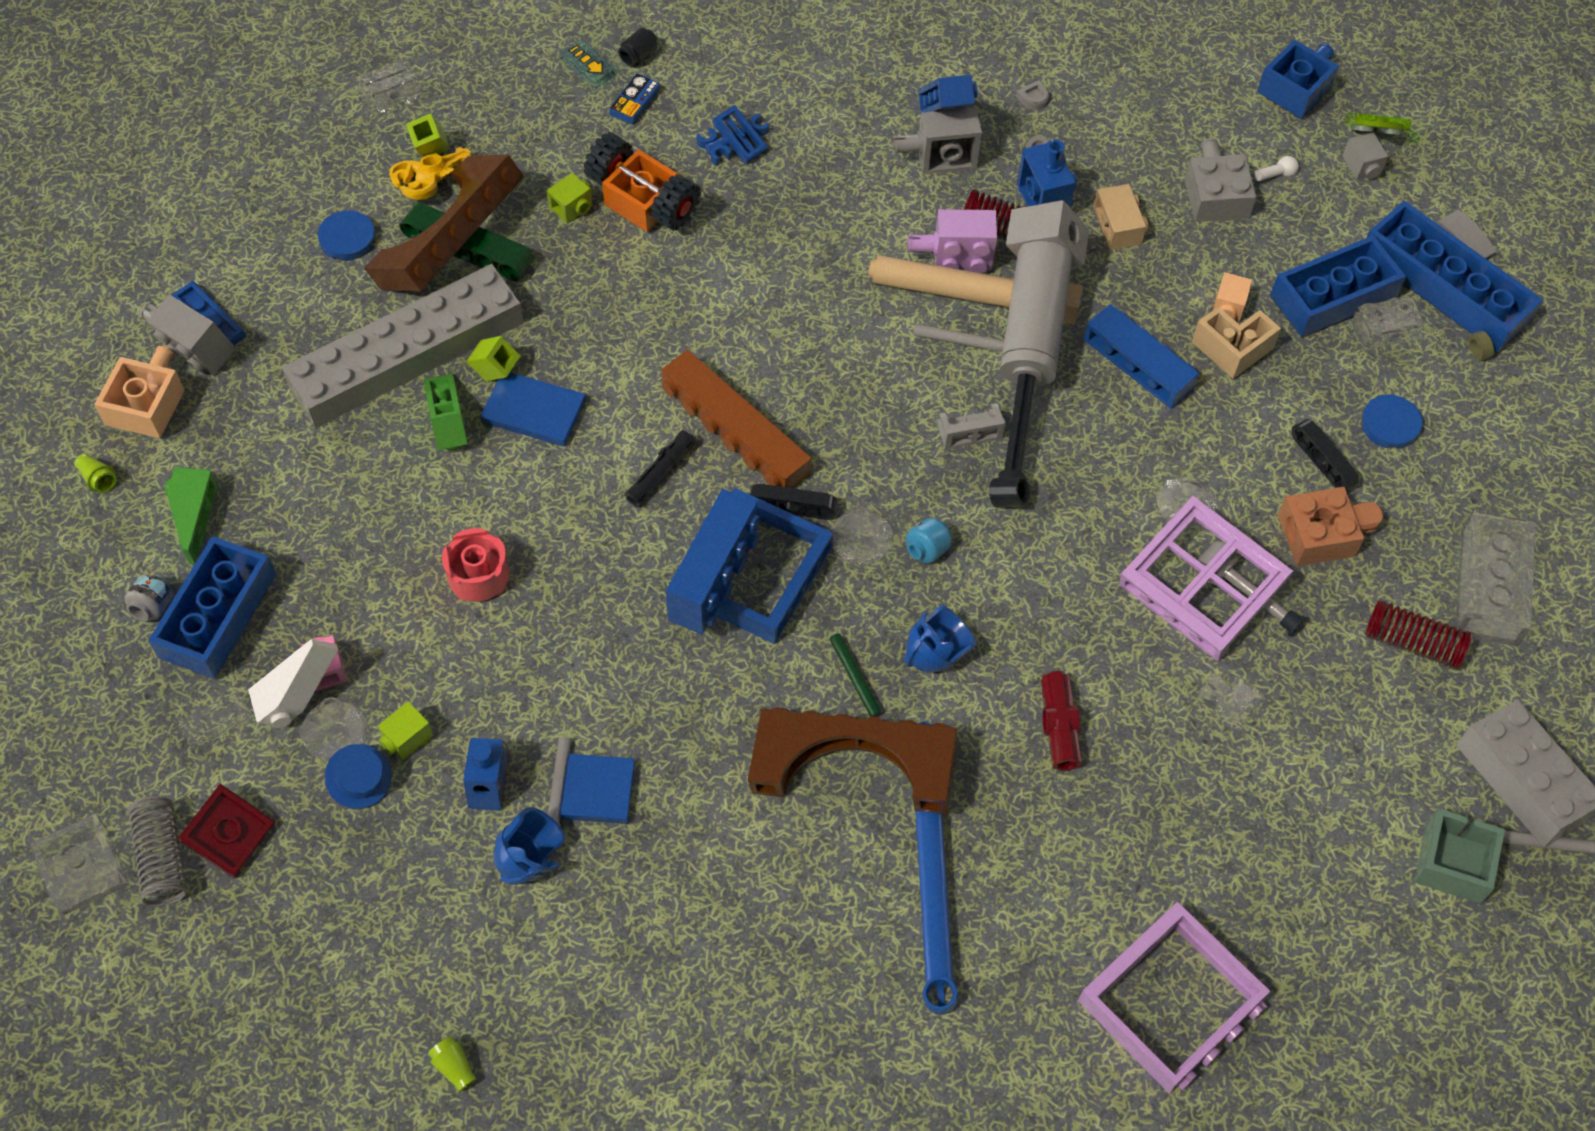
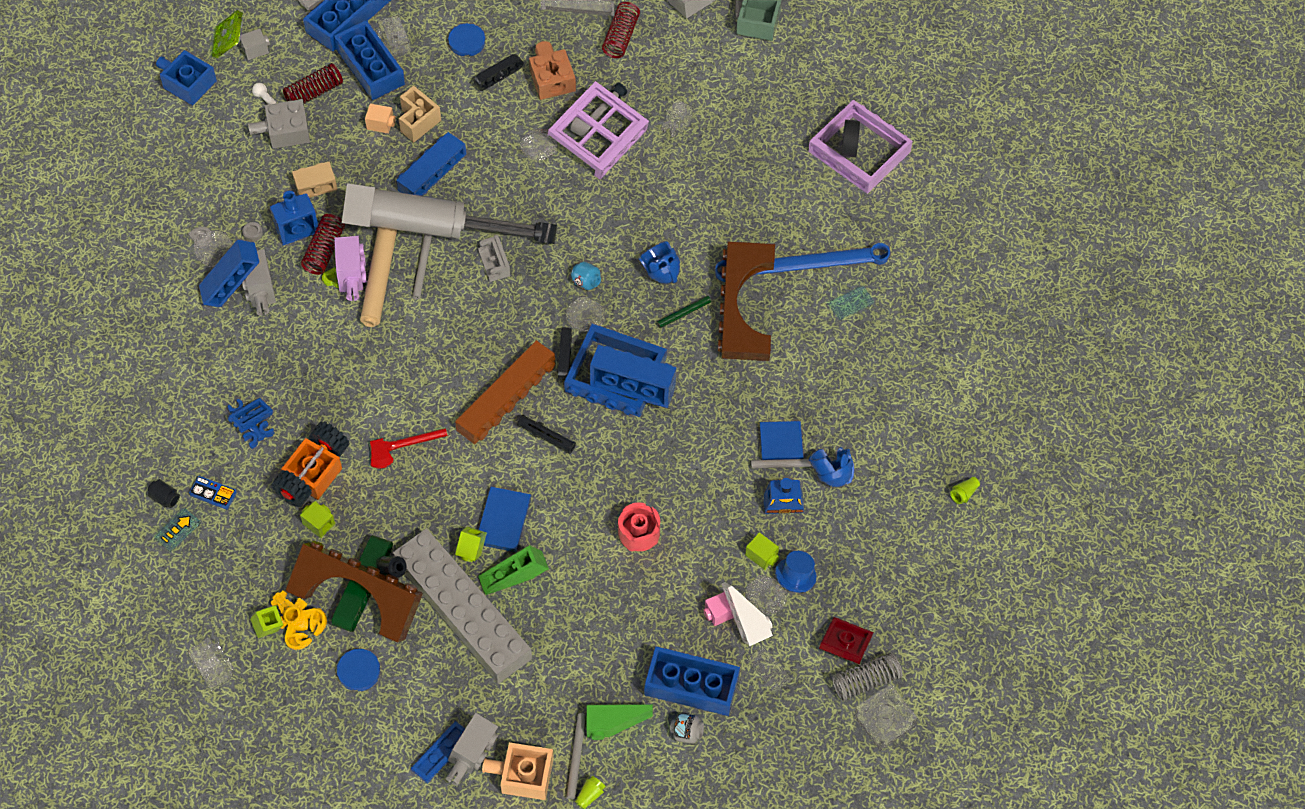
camera: 95 degrees left, 0 degrees up
(141, 461) = (576, 755): none -> light grey bar
(468, 260) = (392, 566): none -> black brick
(669, 274) = (380, 449): none -> red piece
(848, 936) = (851, 302): none -> clear light blue tile
(1011, 105) = (211, 247): none -> clear dish
(1061, 721) = (701, 203): dark red piece -> none
(1166, 958) = (850, 138): none -> black tyre
(1304, 244) = (330, 73): none -> dark red piece

